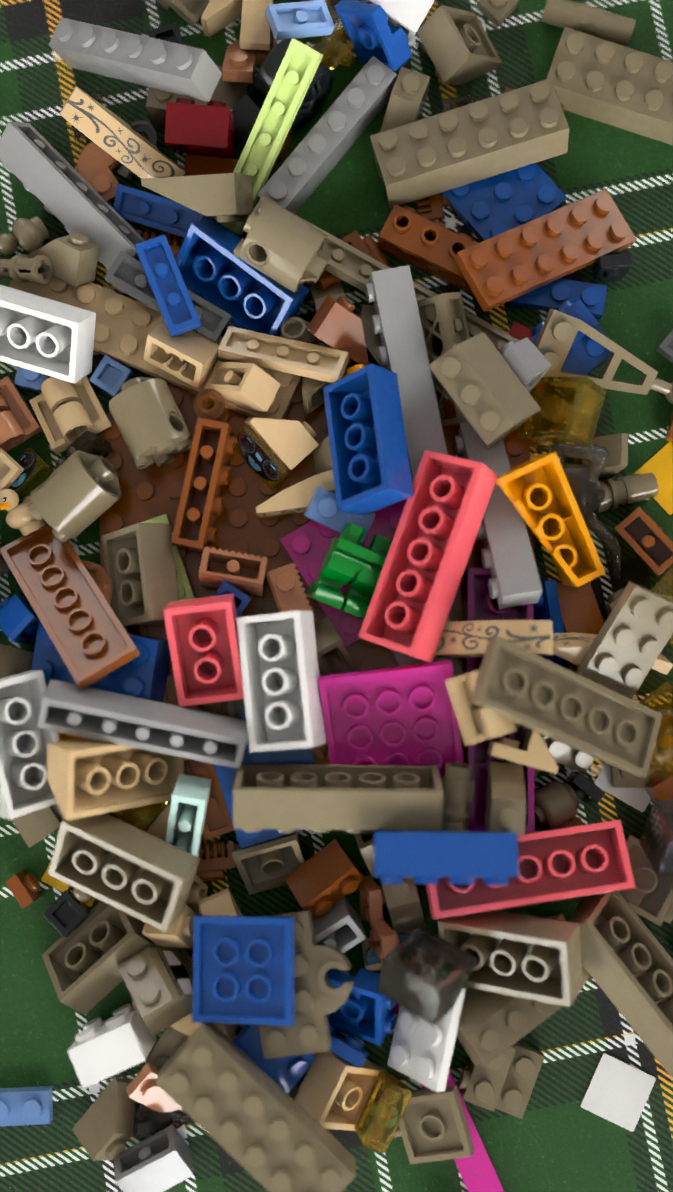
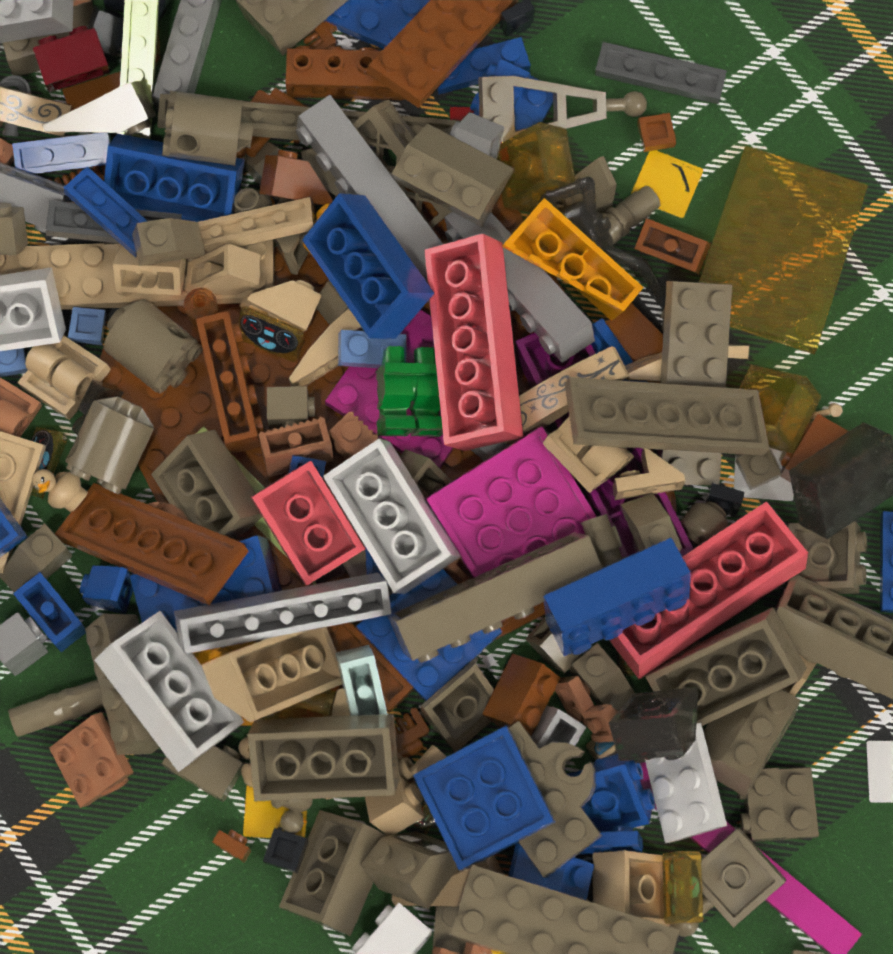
camera: 30 degrees left, 10 degrees down
(203, 336) = (167, 240): none -> dark tan slope
(245, 533) = (289, 406): none -> dark tan brick

